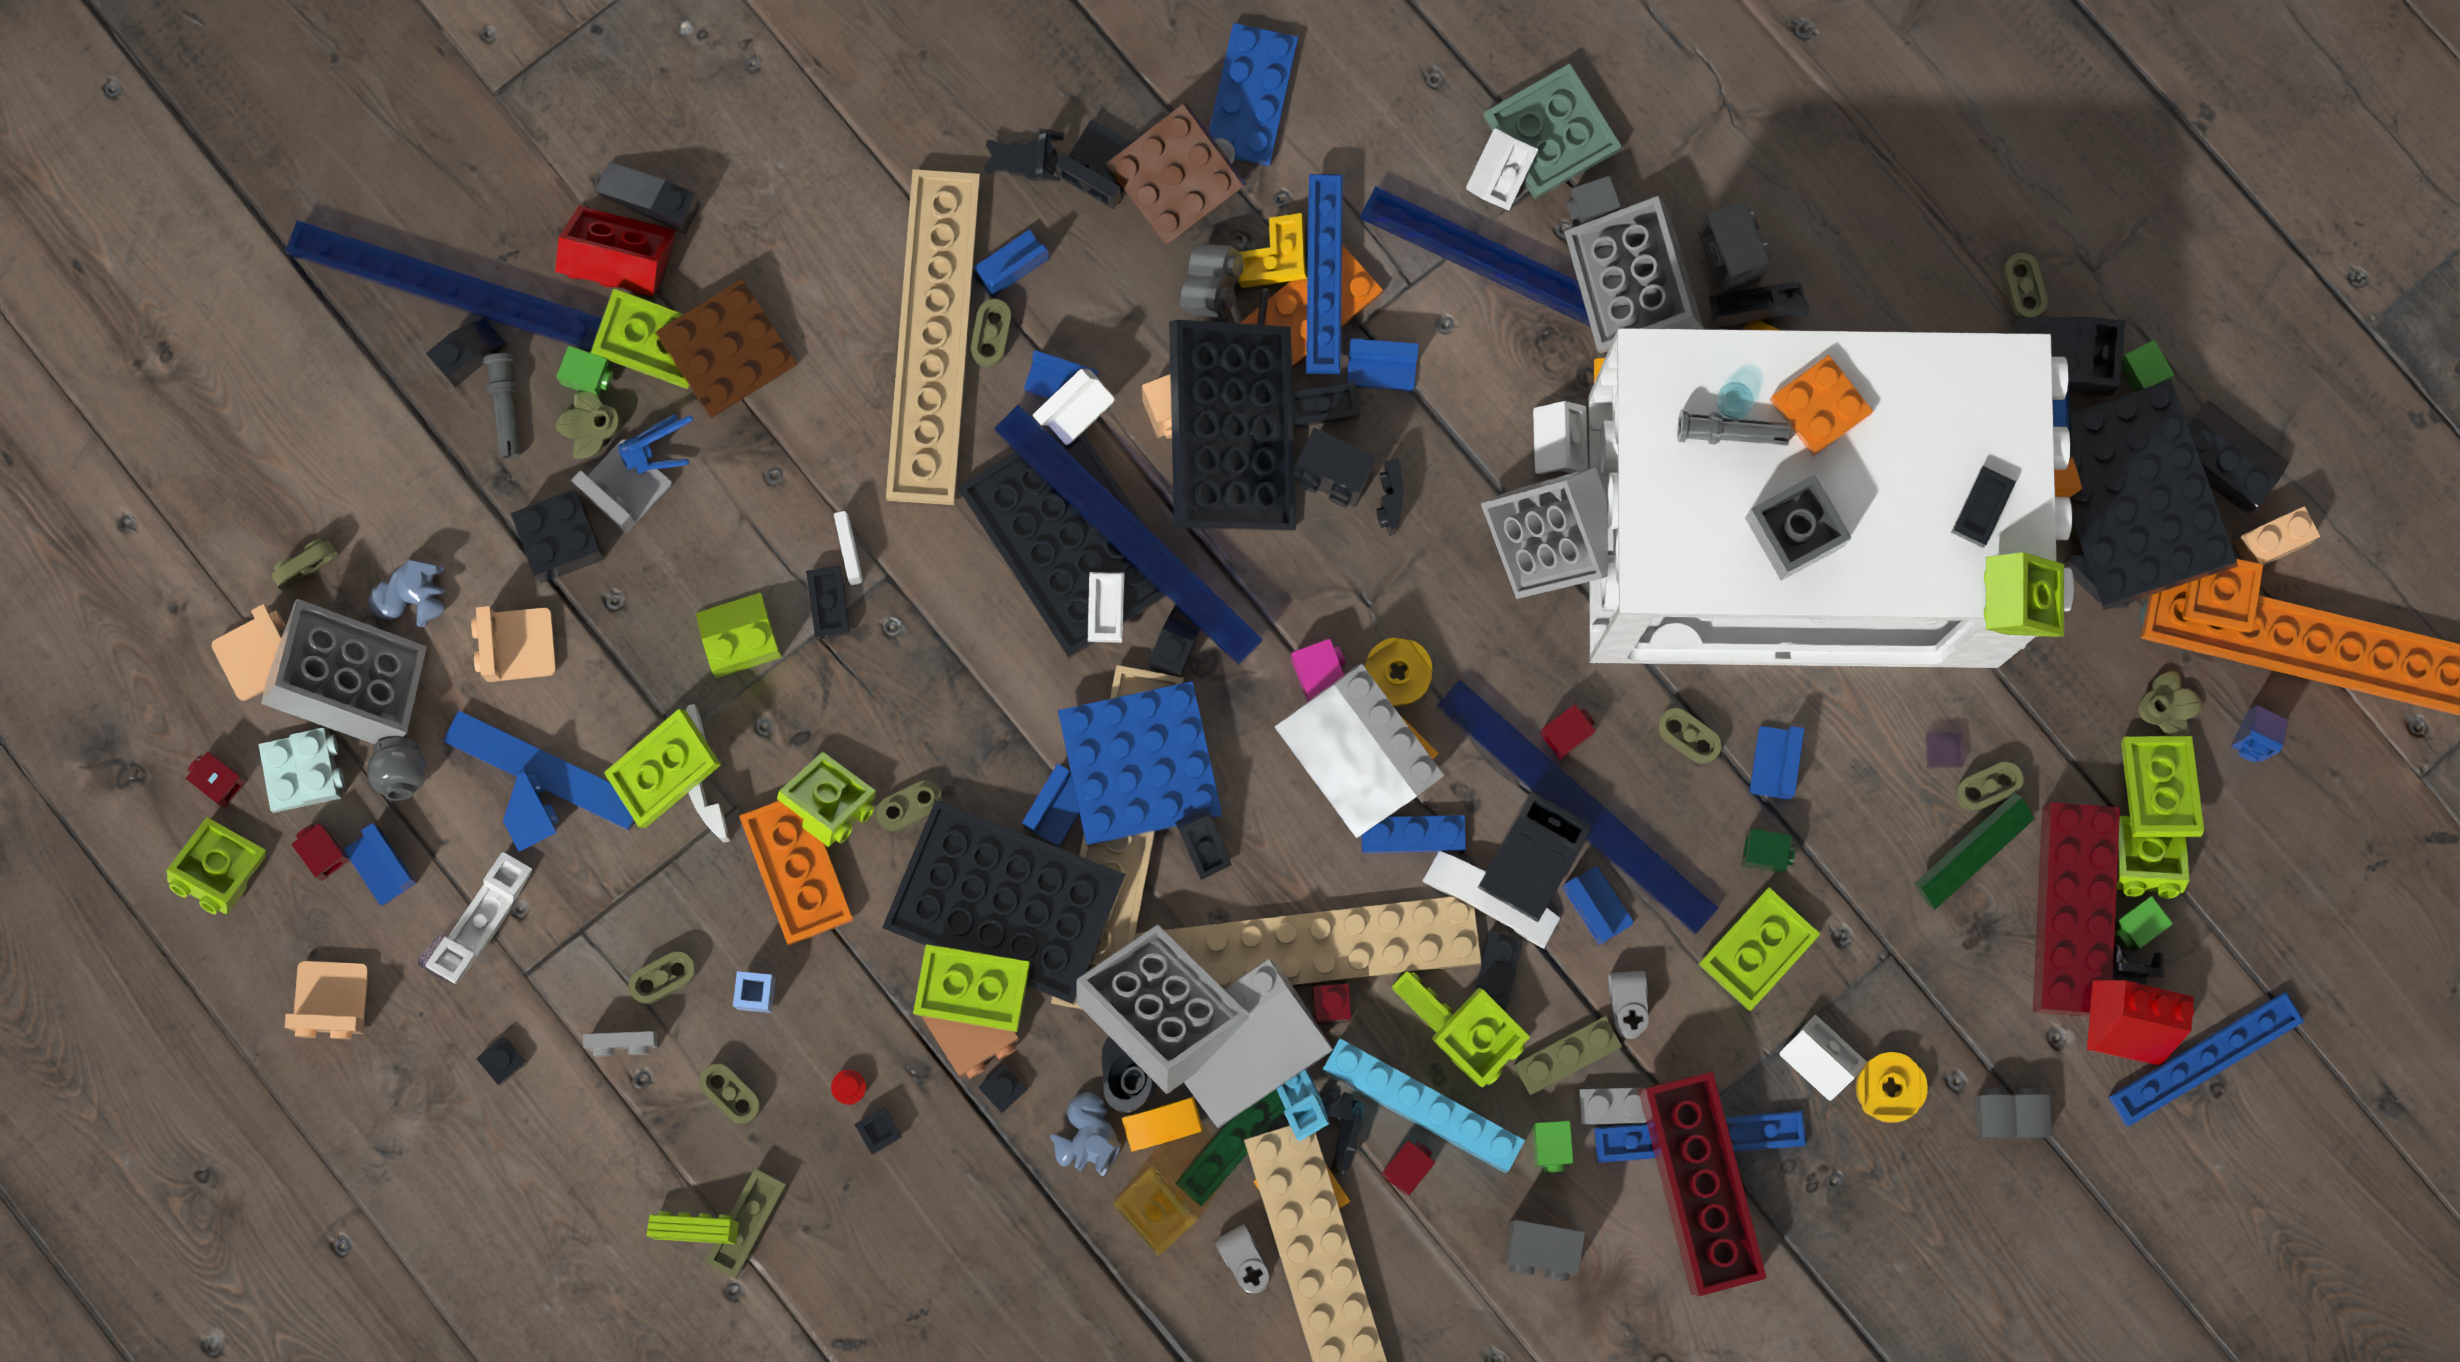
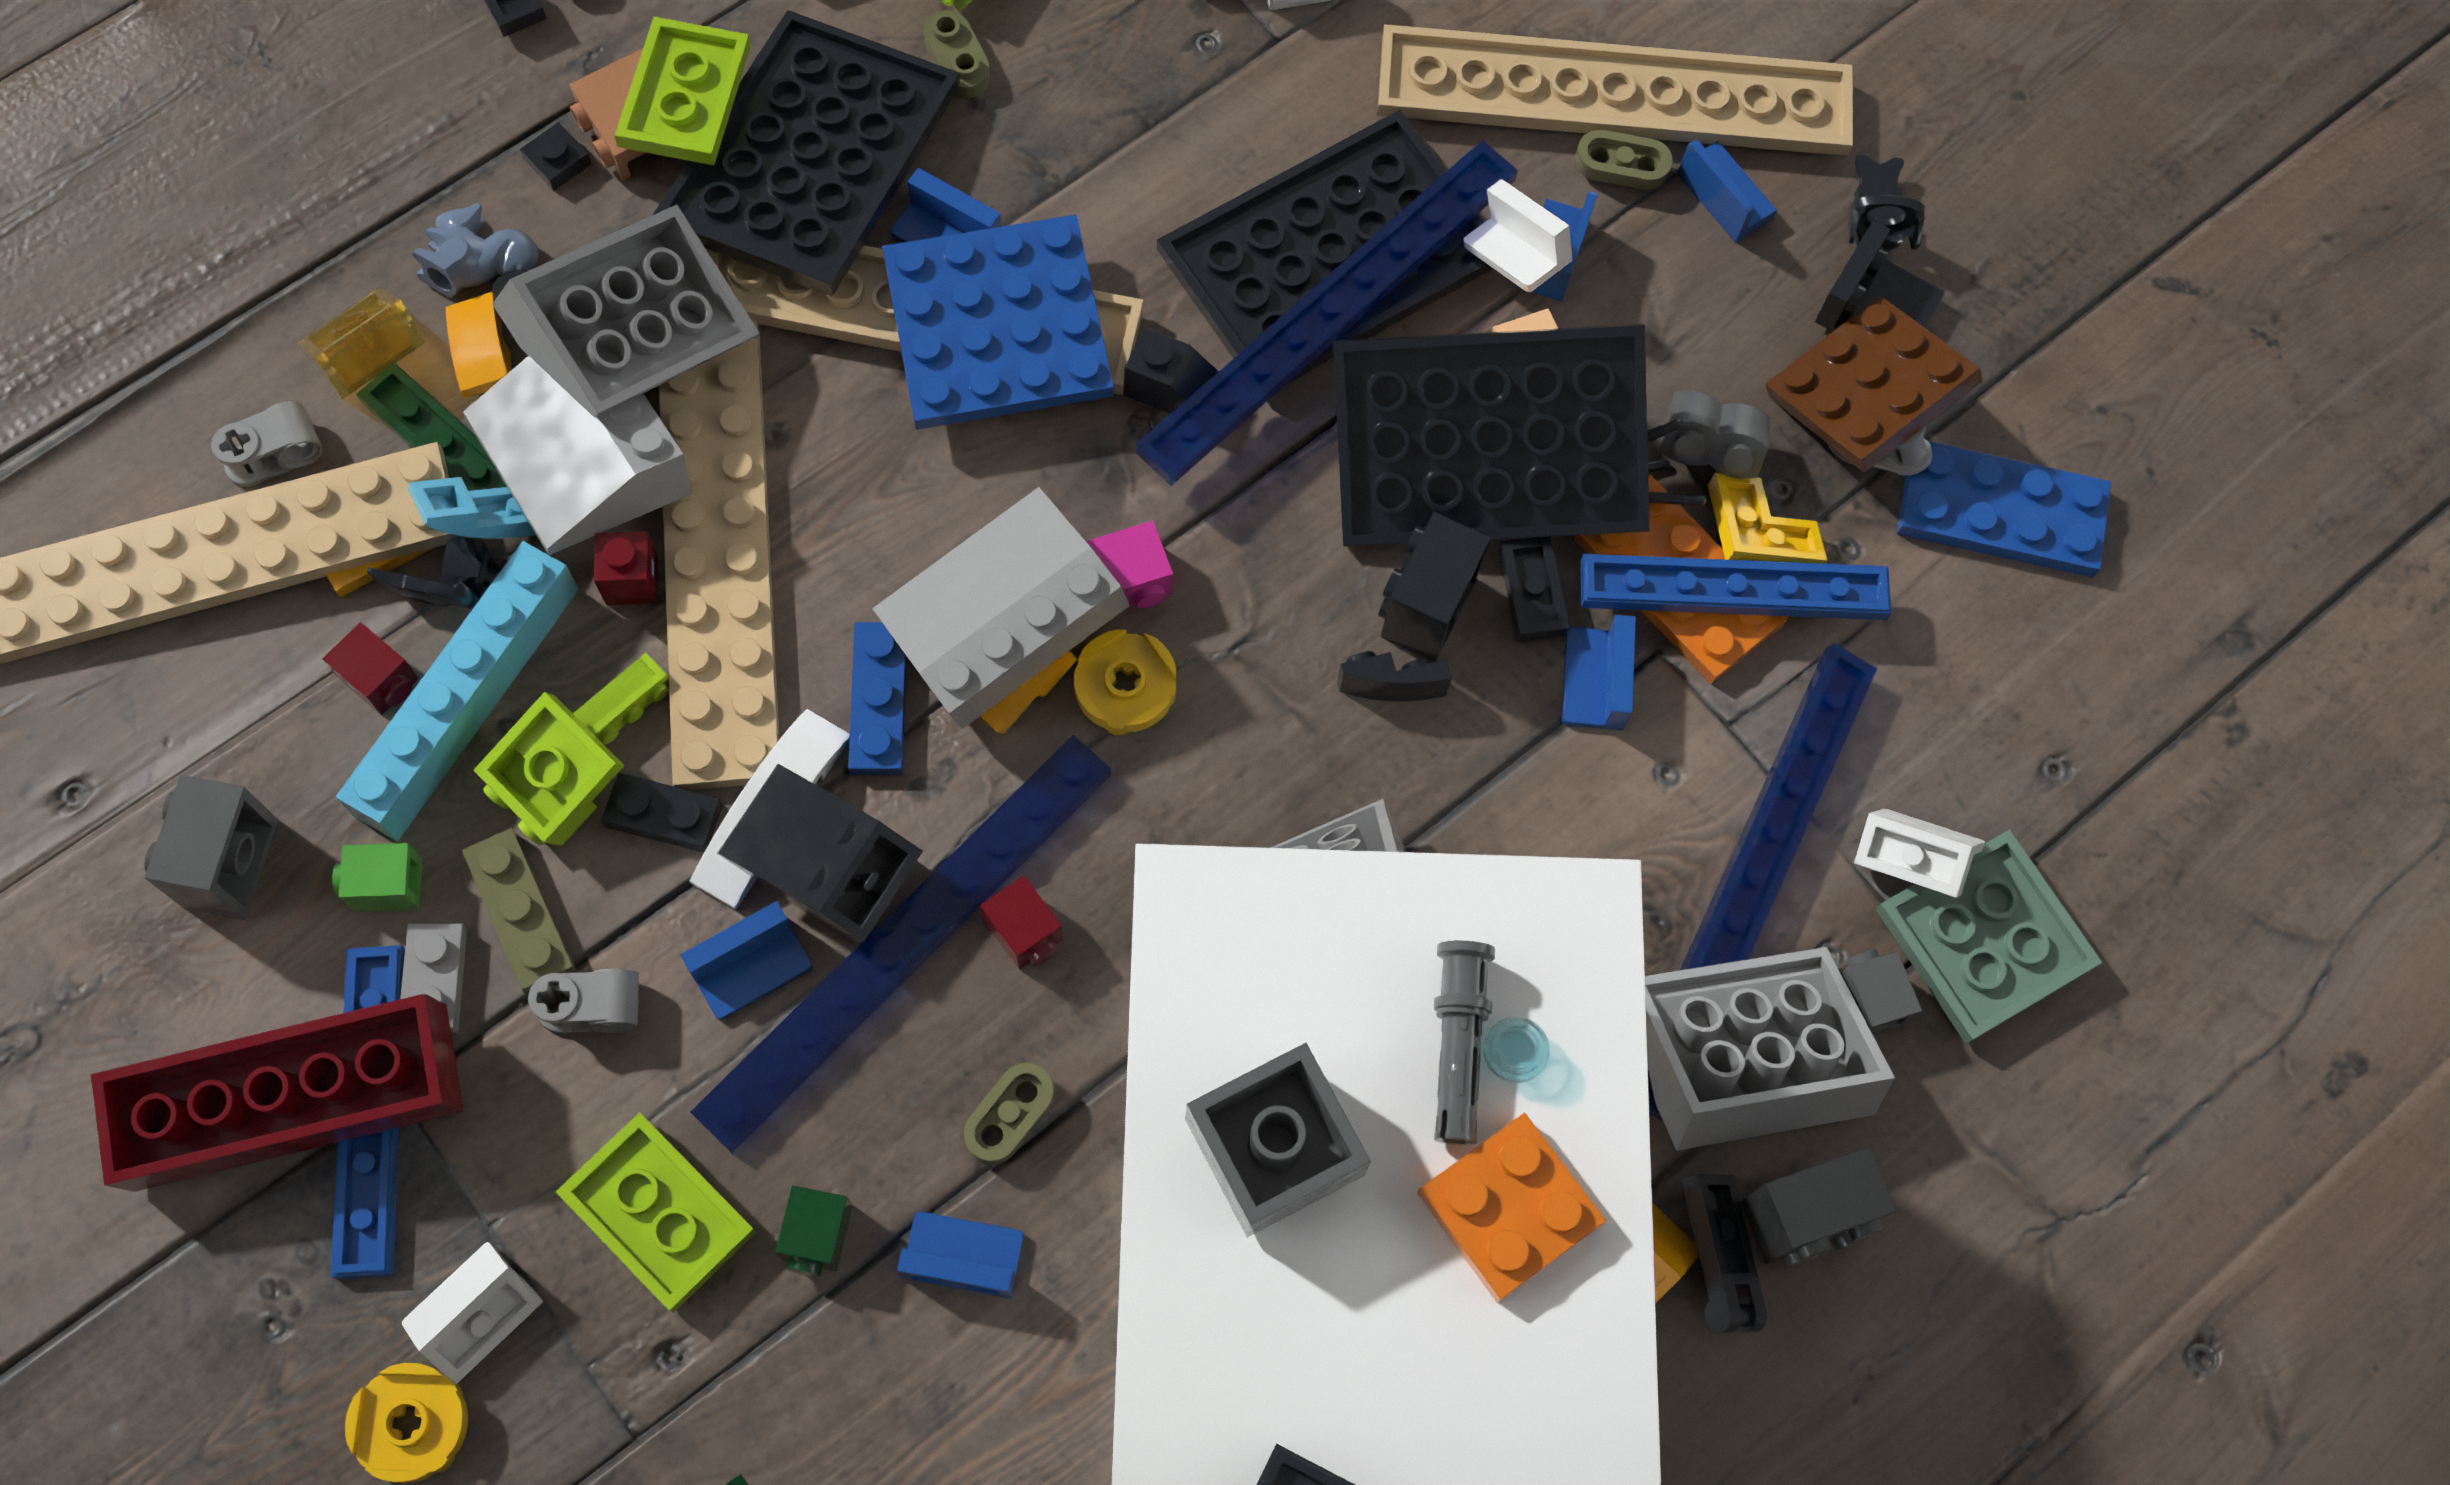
camera: 90 degrees right, 10 degrees down
(1105, 607) = (1226, 283): white tile -> none
(1203, 843) = (875, 398): black plate -> none

